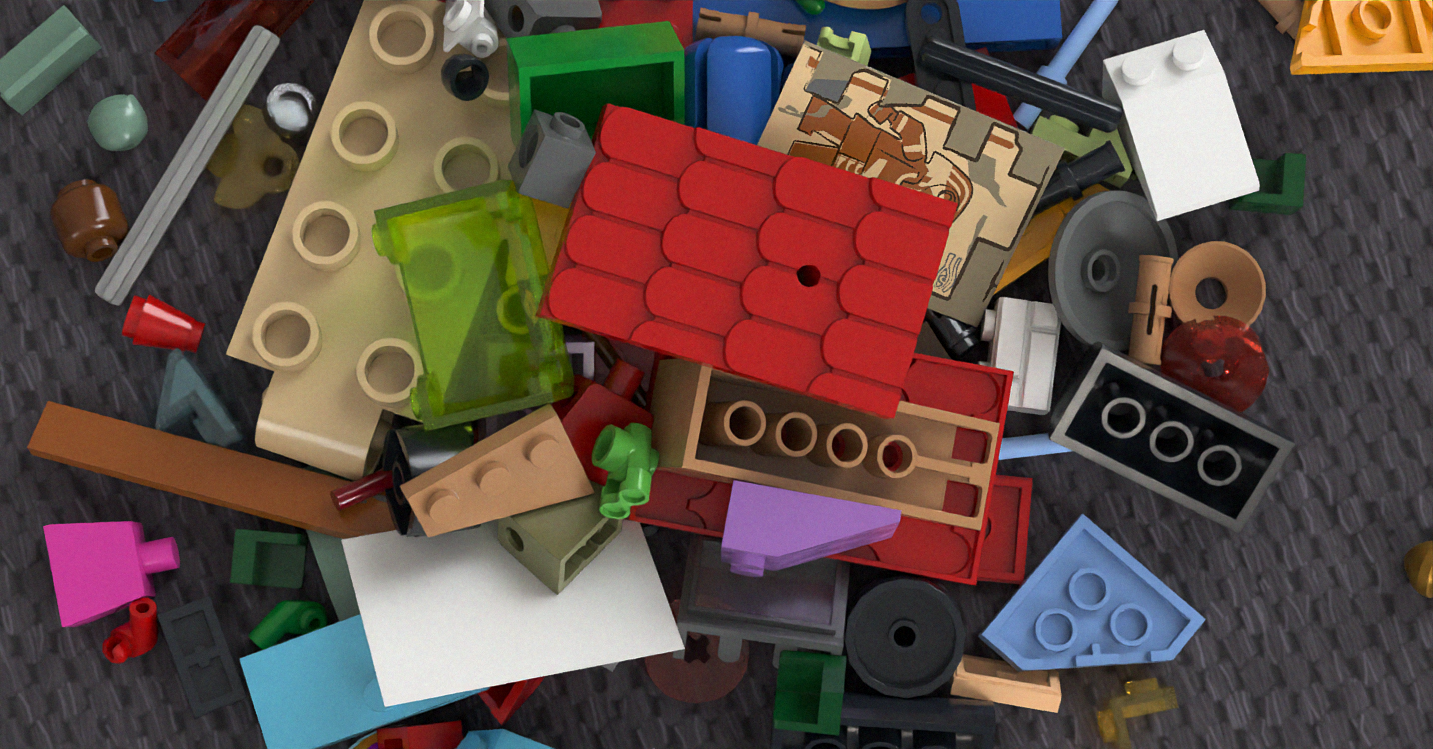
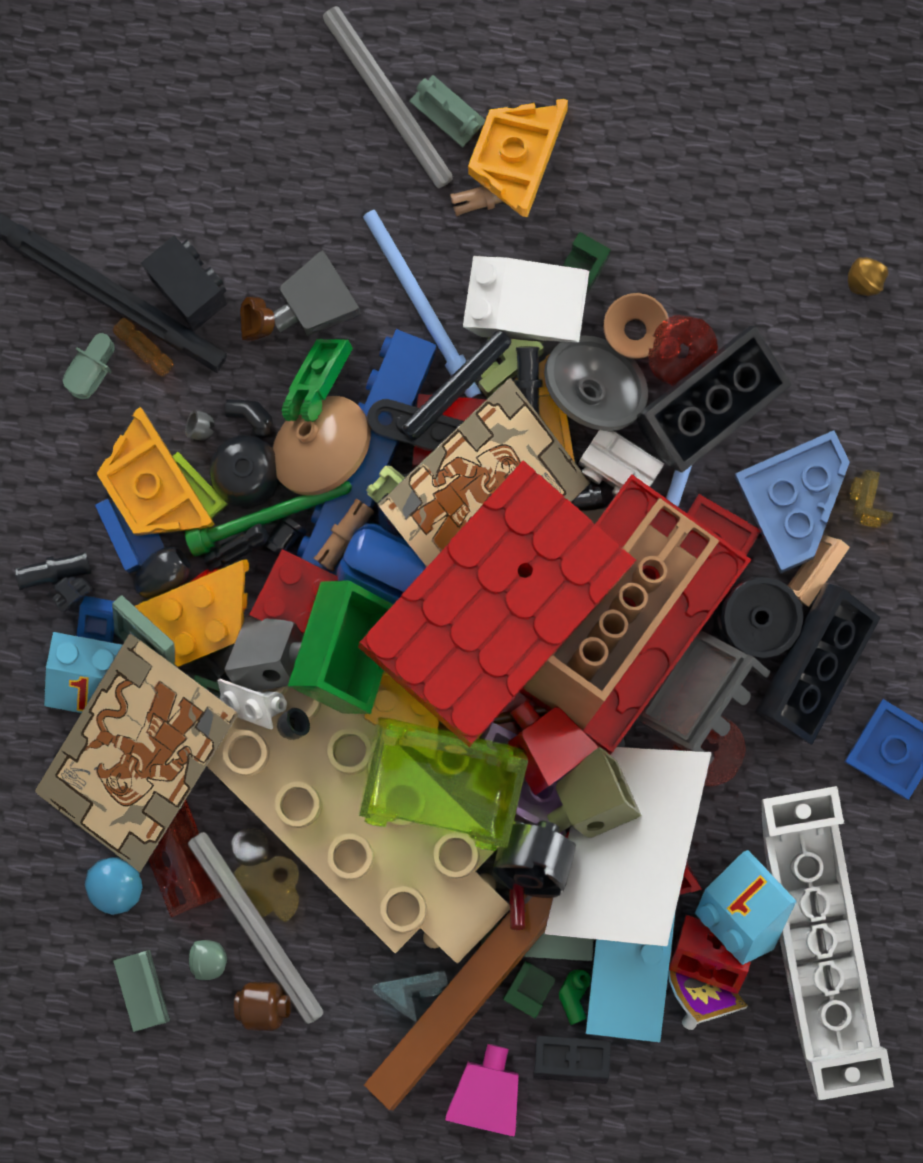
camera: 60 degrees left, 0 degrees up
(134, 636) = (538, 1095): red arm -> none
(161, 325) = (350, 990): red cone -> none
(500, 476) = (556, 815): medium nougat wing -> none
(551, 158) = (376, 692): dark grey brick -> none
(629, 465) = (583, 734): bright green plate -> none
(787, 527) = (664, 660): medium lavender slope -> none
(809, 692) = (771, 690): dark green panel -> none
(1155, 273) = (650, 387): medium nougat pin -> none

